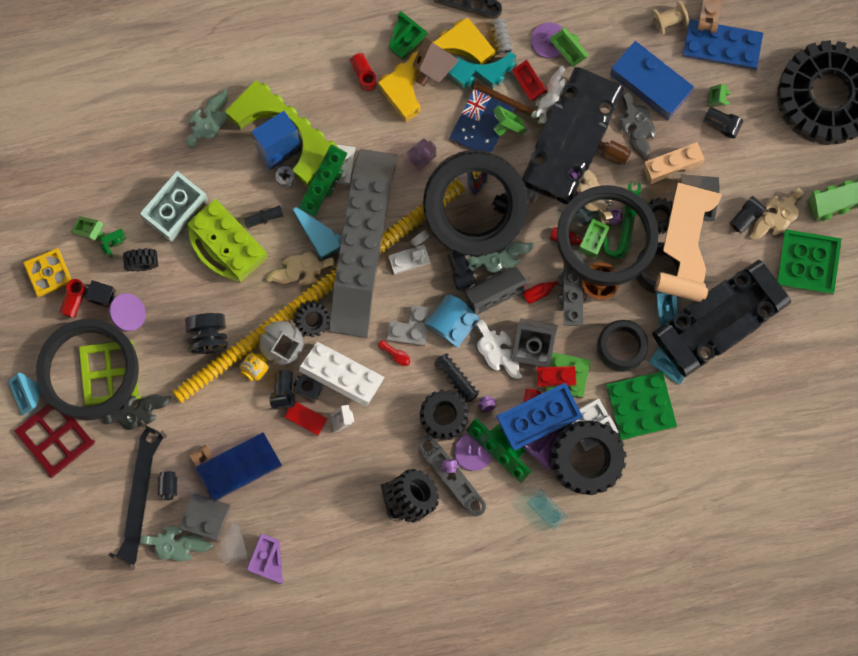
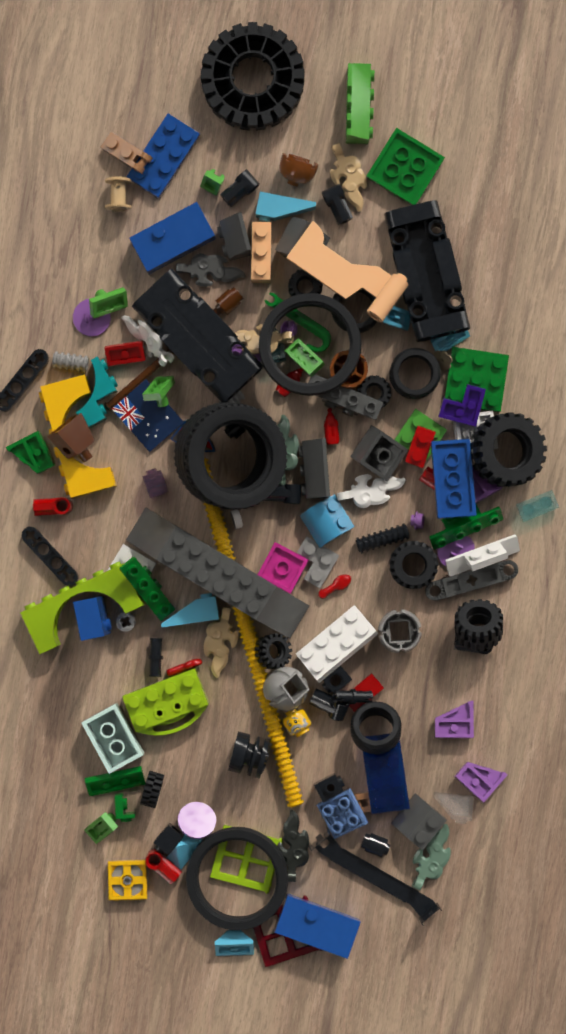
camera: 70 degrees left, 10 degrees up
(70, 460) = (317, 926): none -> blue brick
(94, 310) = (183, 851): none -> medium azure slope
(134, 224) = (115, 781): none -> green plate
(185, 443) = (342, 813): none -> medium blue tile
(210, 428) = (321, 787): none -> black brick
(214, 119) = (45, 674): sand green piece -> none
(270, 251) = (183, 667): none -> red piece
(287, 425) = (376, 709): none -> black tyre
(298, 406) = (352, 696): none -> black pin
(311, 515) = (456, 723): none -> medium lavender wing
(320, 89) = (47, 559): none -> black beam
(341, 418) = (380, 660): white hinge -> none
(370, 414) = (413, 631): none -> light grey piece
(392, 298) = (282, 567): none -> dark pink plate
(409, 259) = (251, 536): white hinge -> none
(449, 466) = (463, 579): medium lavender plate -> none
(479, 476) = (483, 556): none -> white bracket
(600, 317) = (379, 382): none -> black tyre
(609, 406) = (465, 411): none -> dark purple plate
(646, 367) = (443, 359): none -> dark tan plant
(677, 134) = (235, 237): none -> dark grey slope
(722, 165) = (278, 207): none -> medium azure slope
(763, 164) = (297, 169): none -> dark orange cylinder

